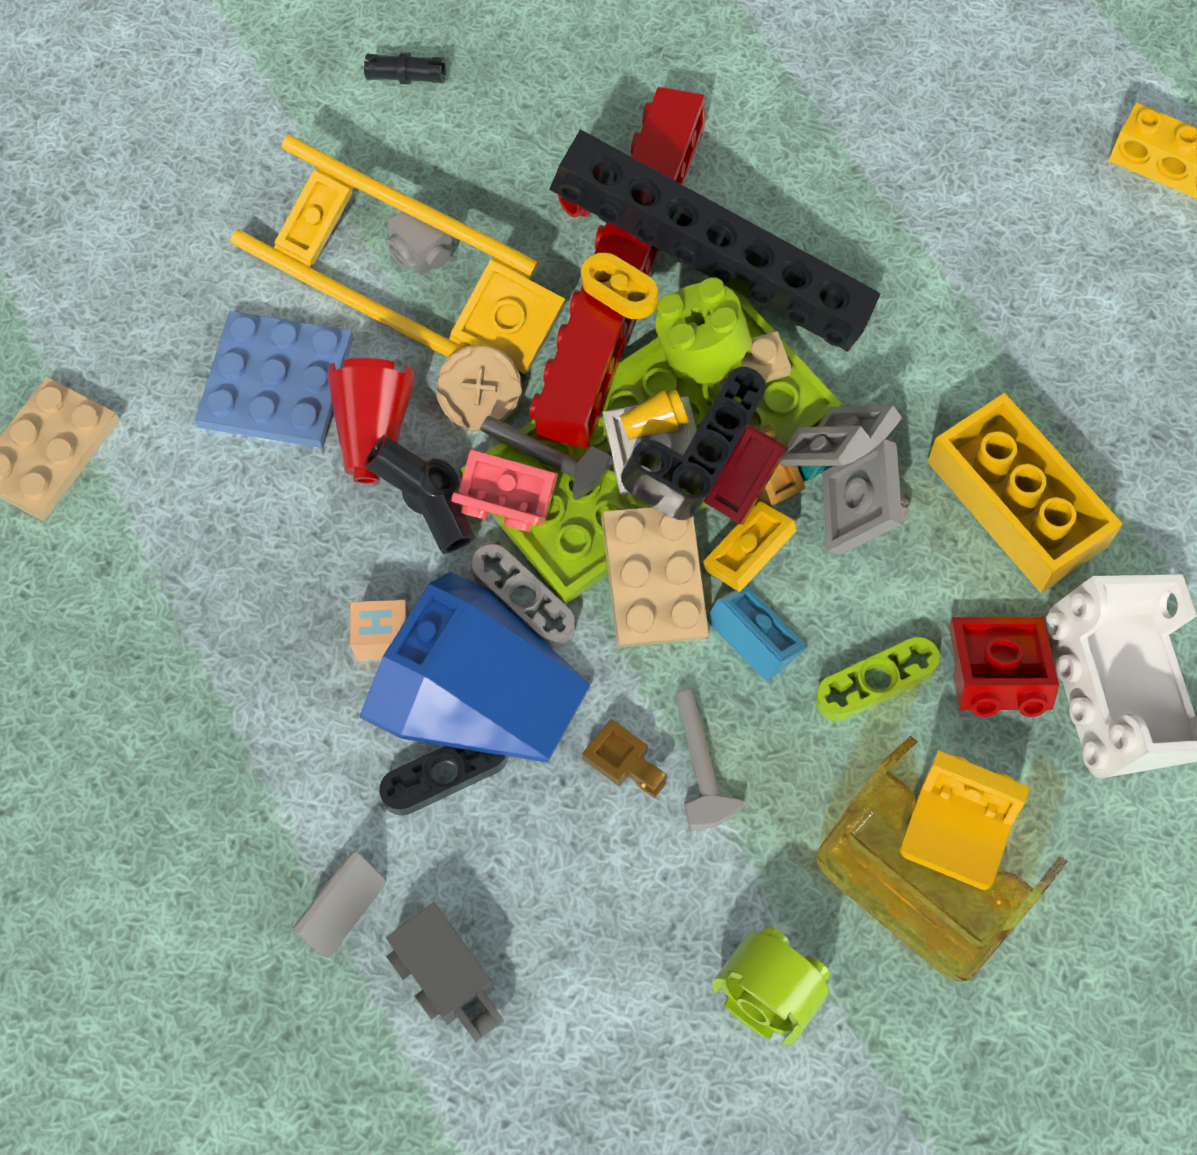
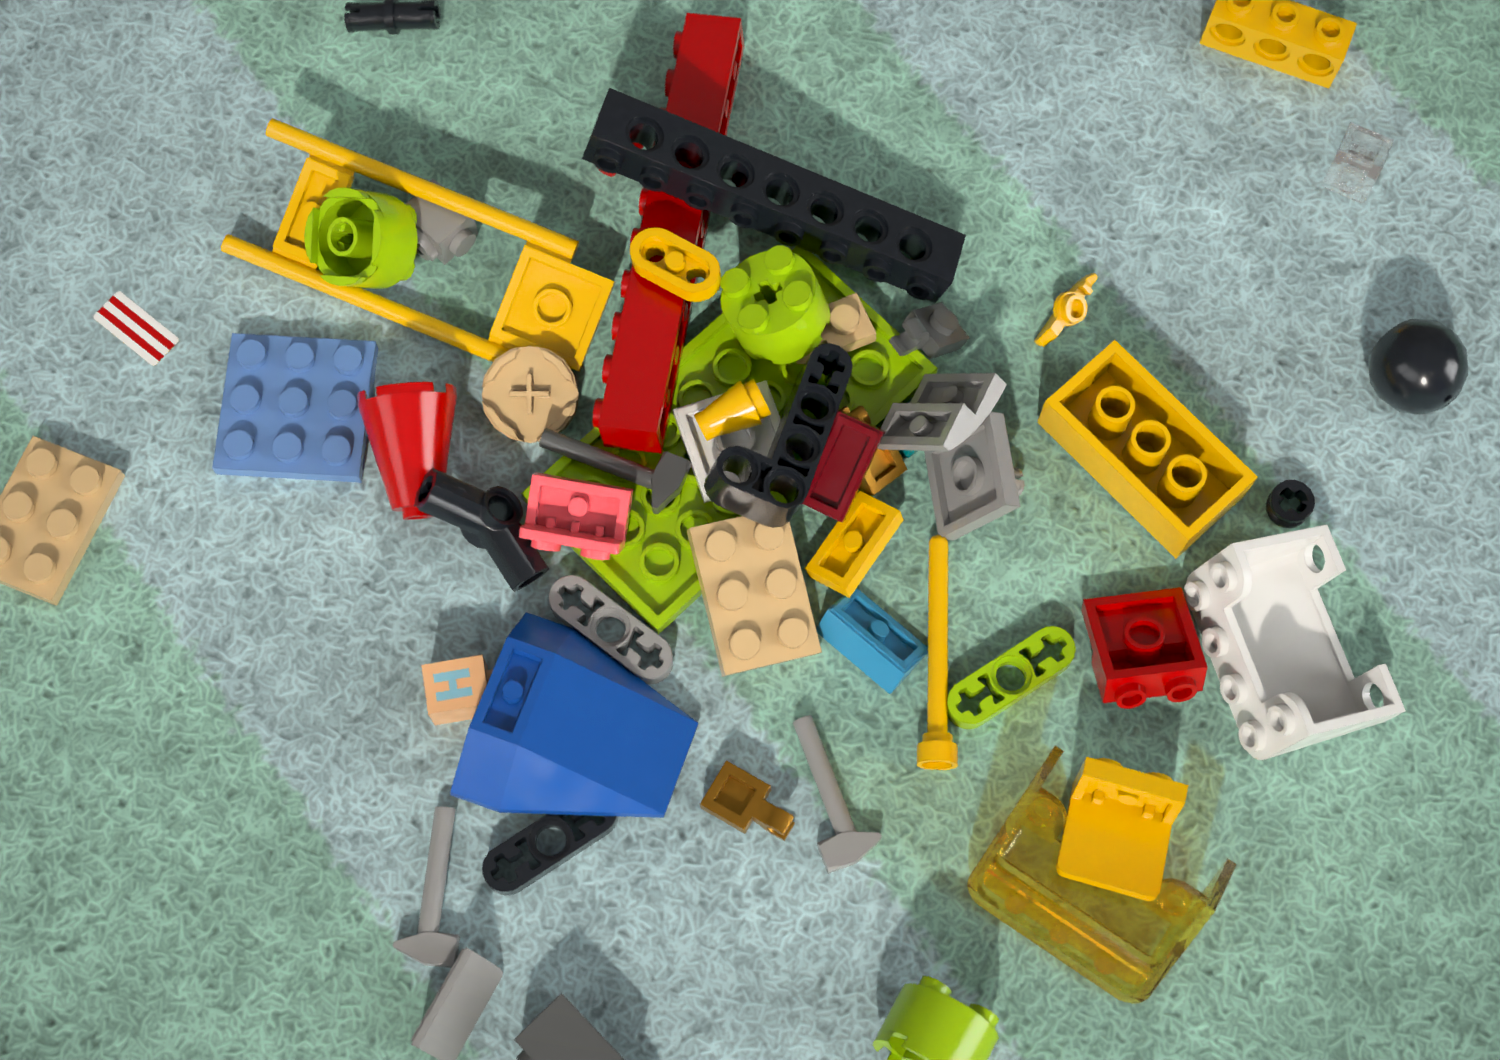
camera: 10 degrees left, 5 degrees up
(148, 300) = (136, 328): none -> sticker
(323, 849) = (428, 944): none -> light grey piece
(351, 241) = (362, 238): none -> lime brick
(803, 732) = (937, 746): none -> yellow piece
(842, 372) = (933, 330): none -> dark grey plate
(965, 369) = (1068, 310): none -> yellow piece
(1151, 544) = (1290, 489): none -> black bush

